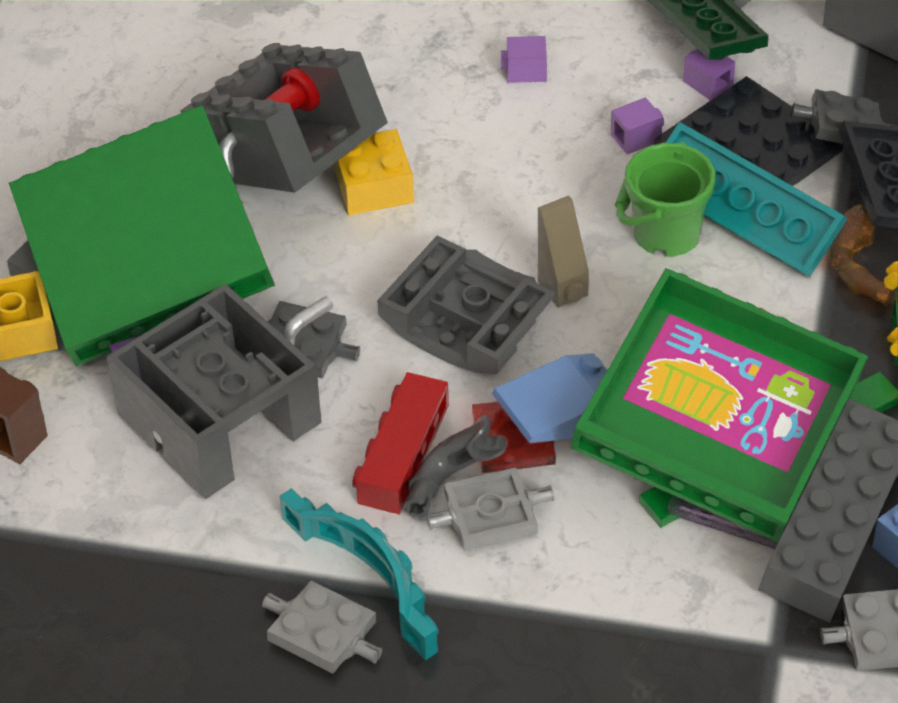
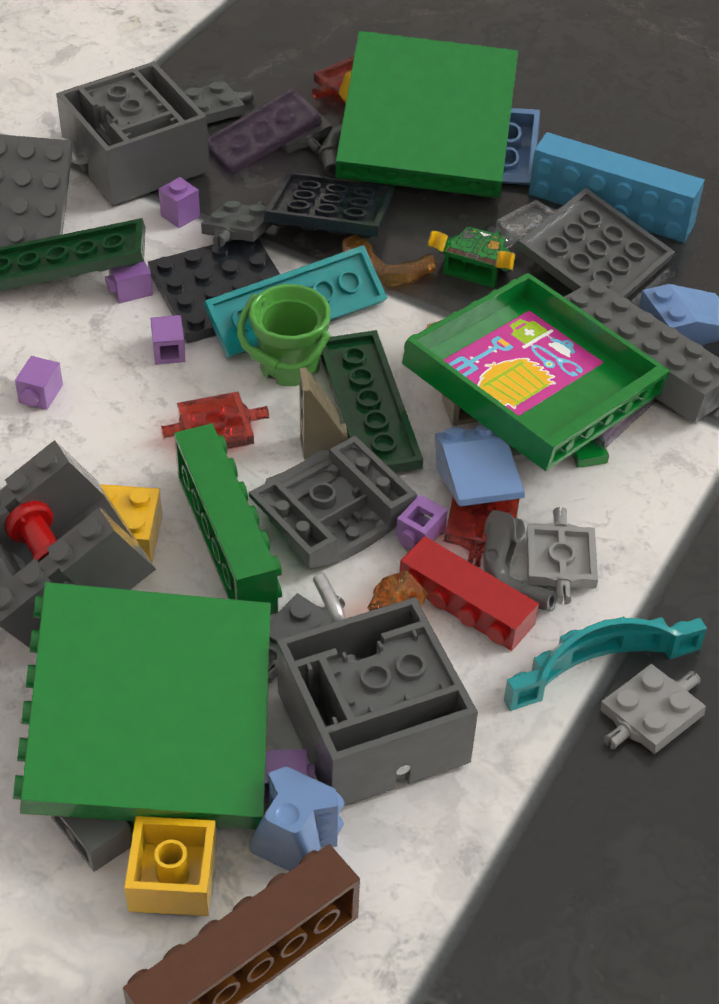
camera: 75 degrees left, 0 degrees up
(77, 380) = (298, 820): none -> medium blue piece
(373, 381) = (397, 589): none -> clear orange brick
(390, 234) = (225, 517): none -> green brick
(474, 381) = (414, 525): none -> medium lavender brick
(535, 187) = (226, 413): none -> clear red plate
(605, 312) = (370, 399): none -> dark green plate
(849, 67) = (179, 202): none -> medium lavender brick

